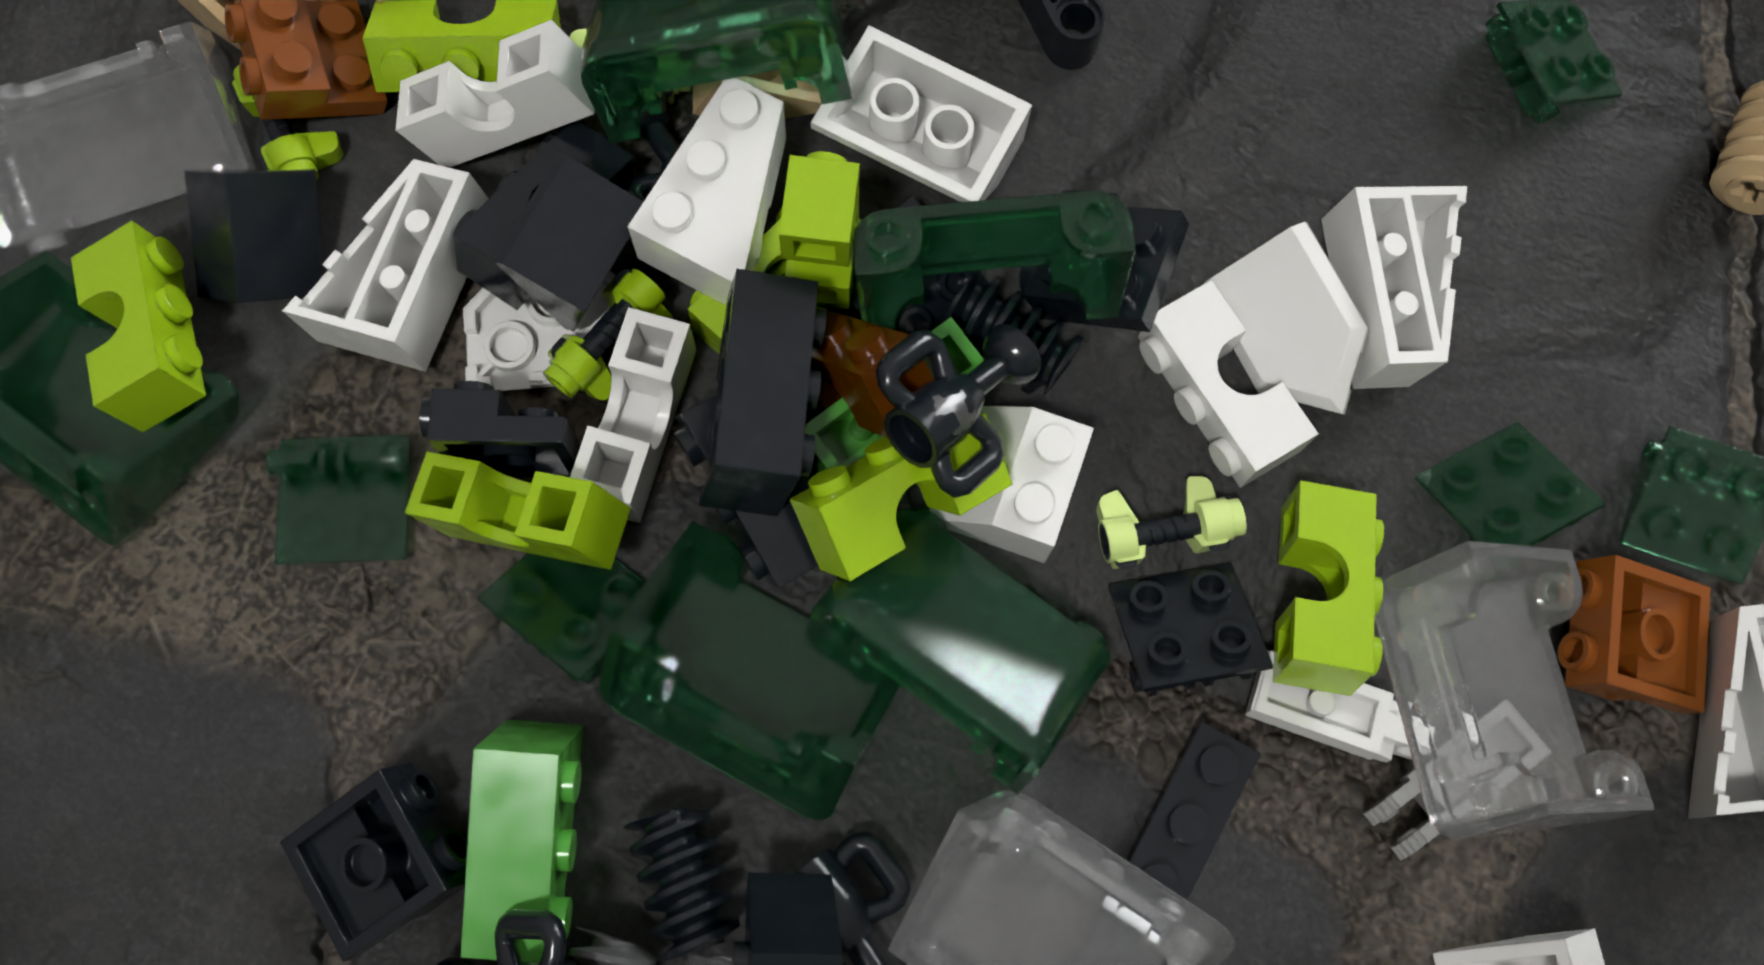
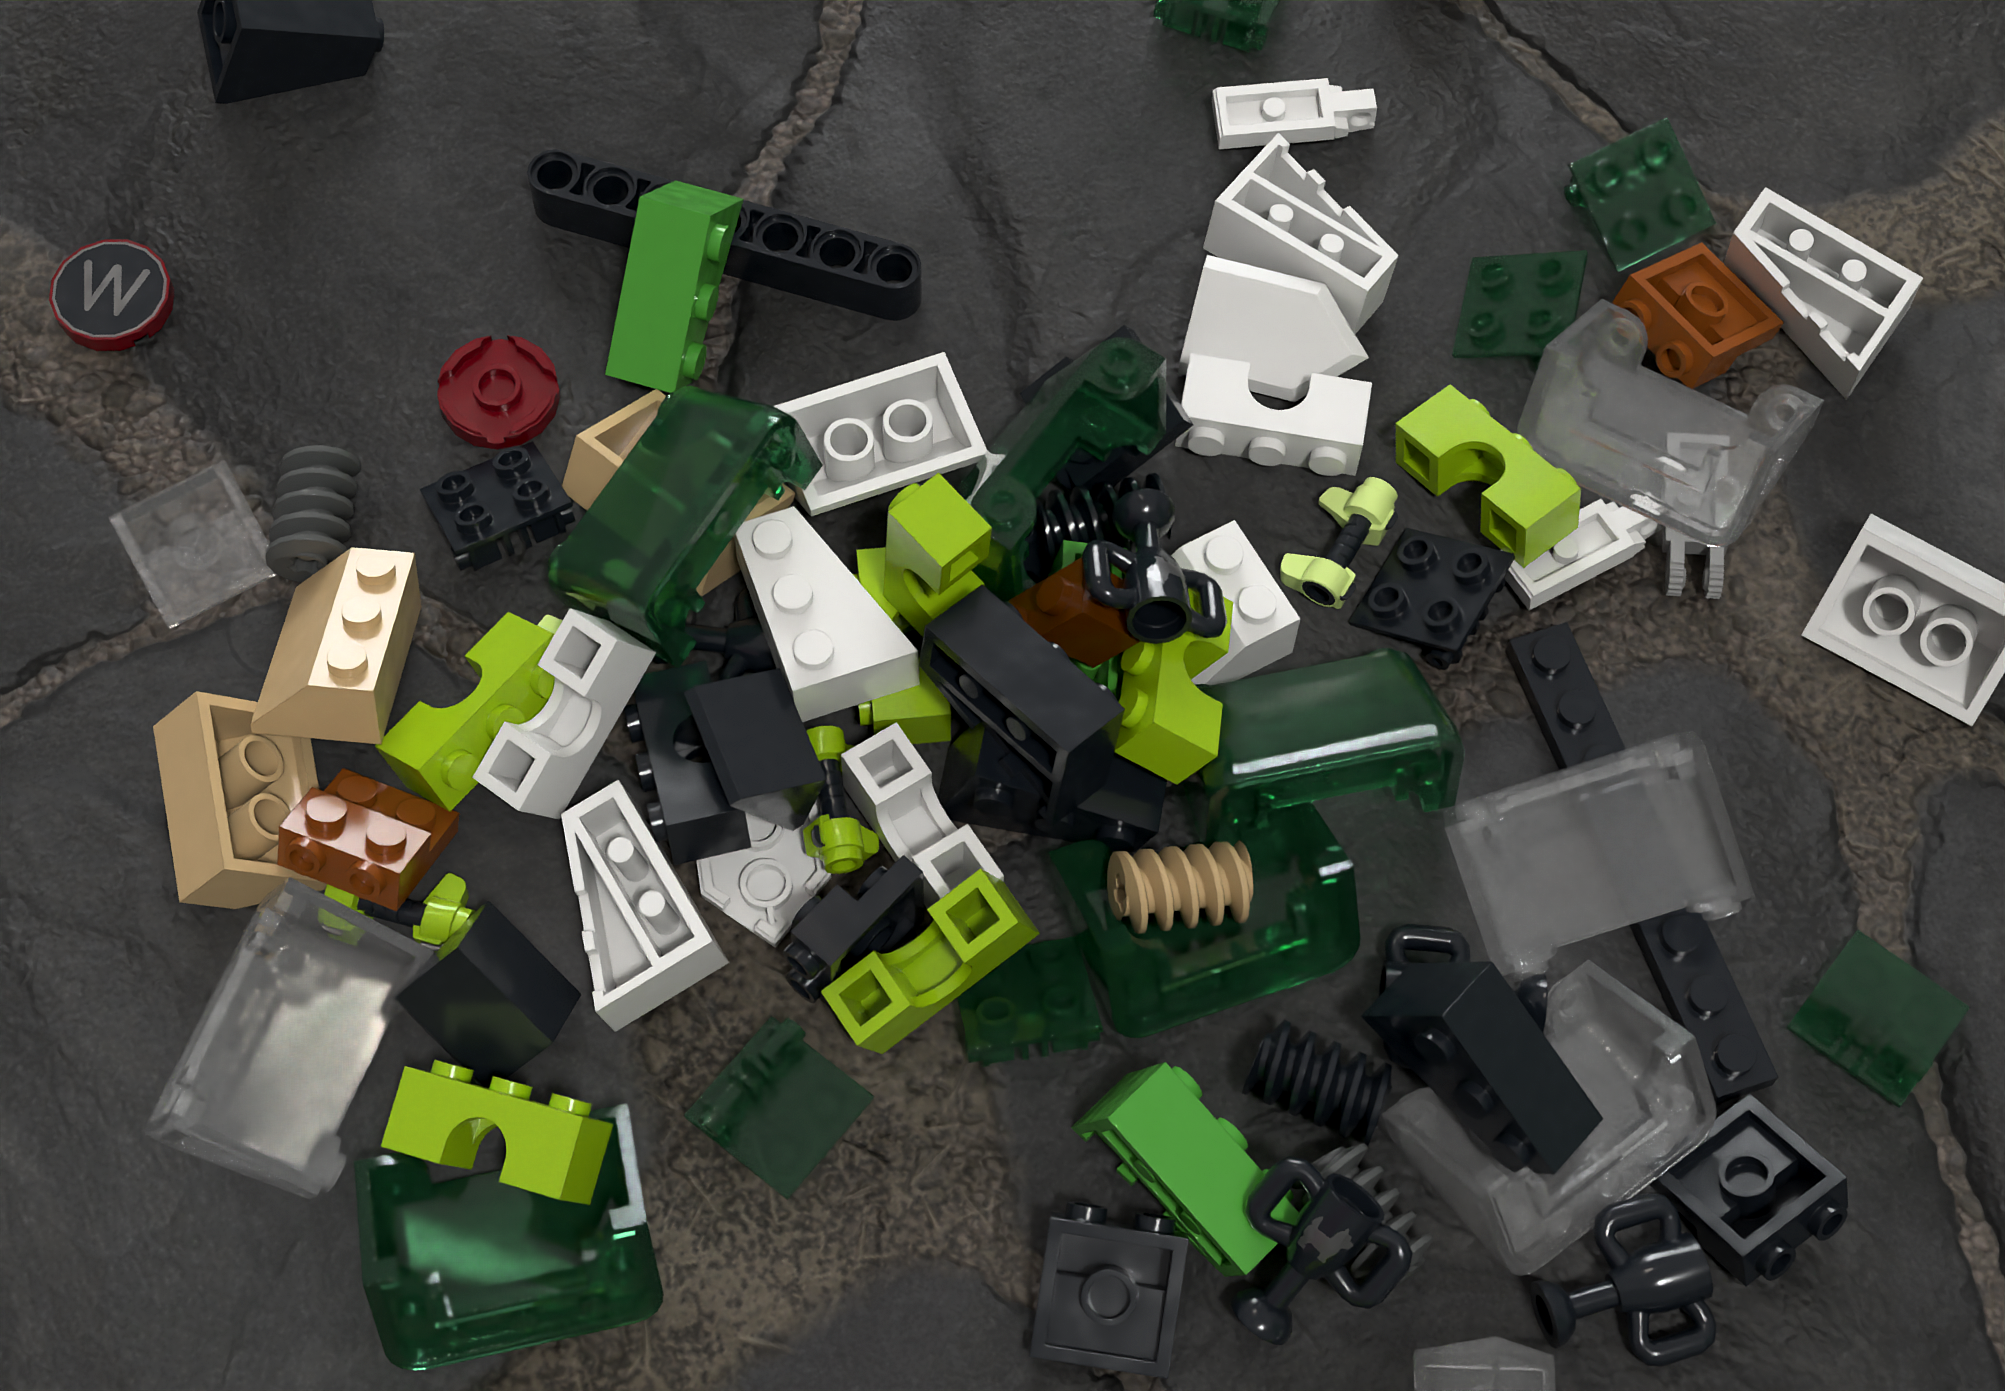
camera: 45 degrees left, 10 degrees down
(748, 644) = (1181, 883): none -> tan piece
(1503, 185) = (1293, 109): none -> white hinge

